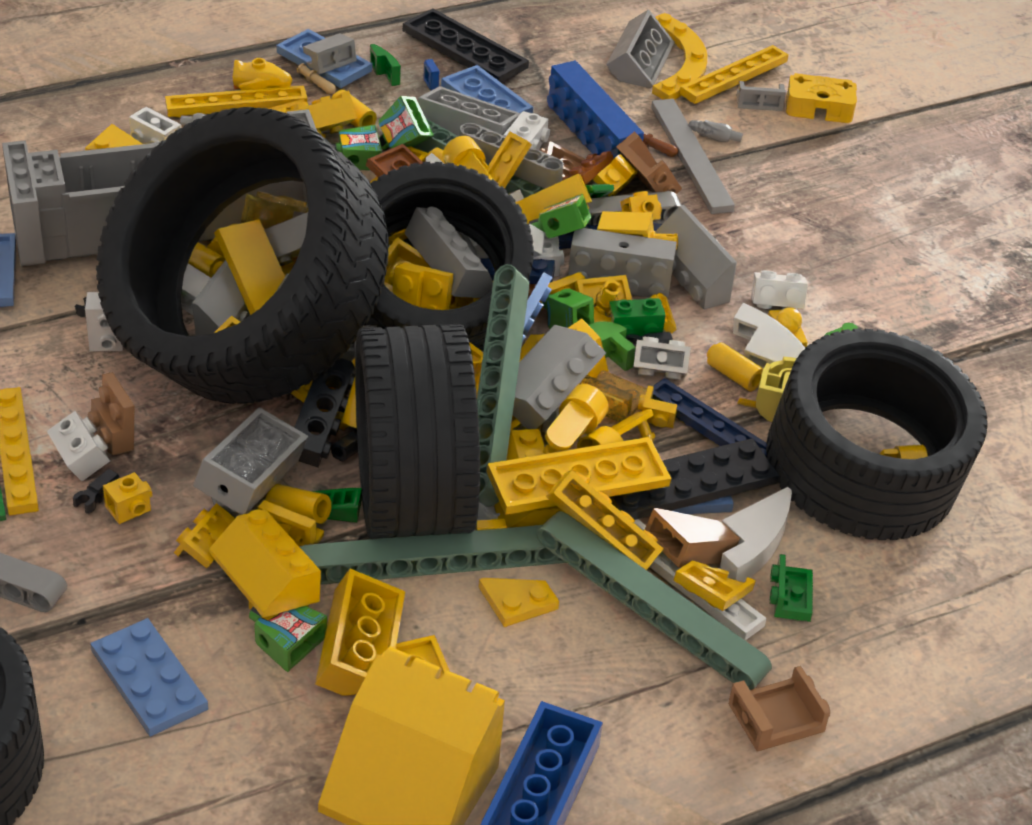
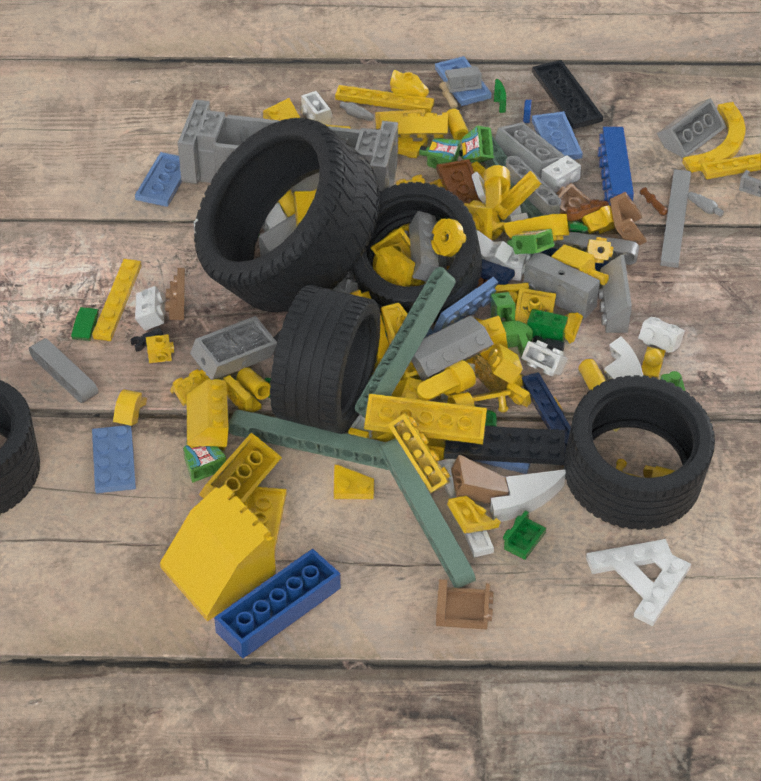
camera: 30 degrees right, 5 degrees up
(133, 593) = (128, 407): none -> yellow brick
(472, 229) = (455, 240): none -> yellow plate
(627, 376) = (504, 363): none -> yellow hinge
(932, 578) = (625, 562): none -> white plate

